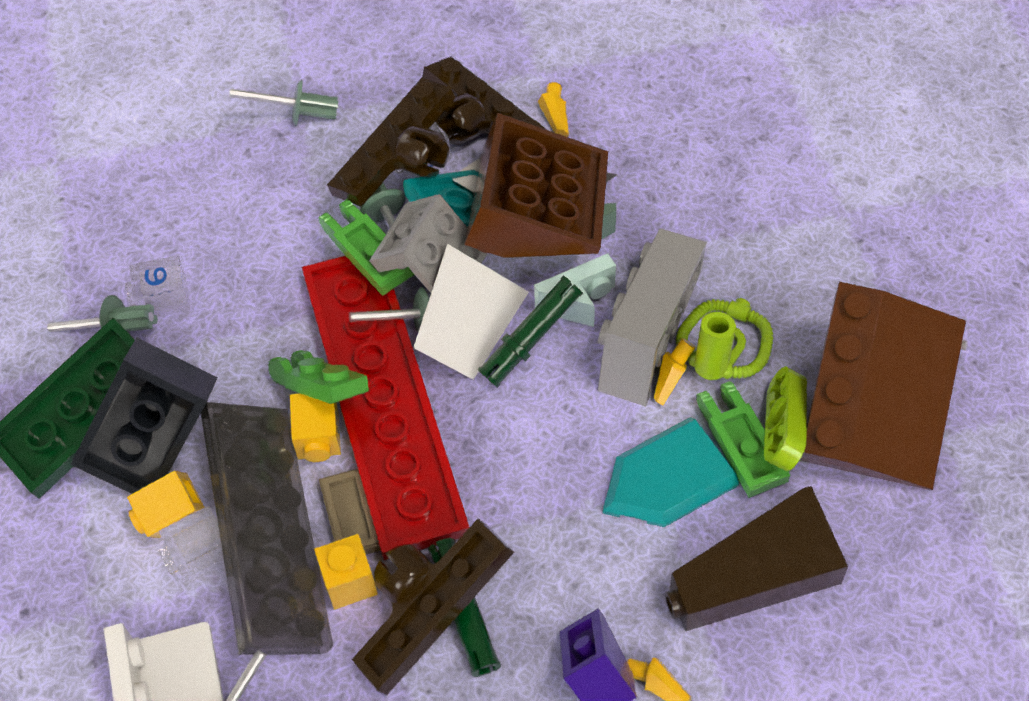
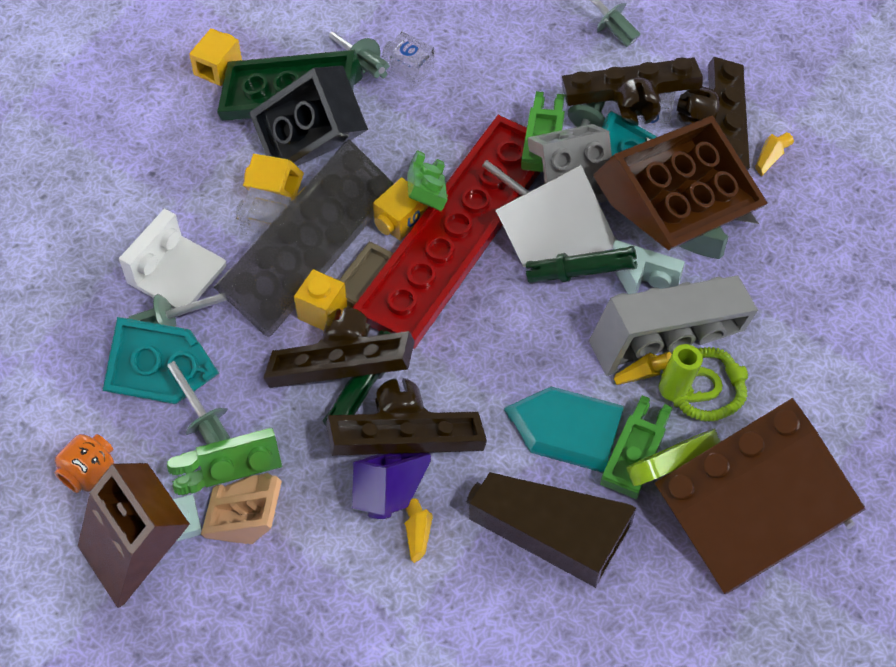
camera: 45 degrees right, 0 degrees up
(553, 608) = (404, 426): none -> dark brown plate

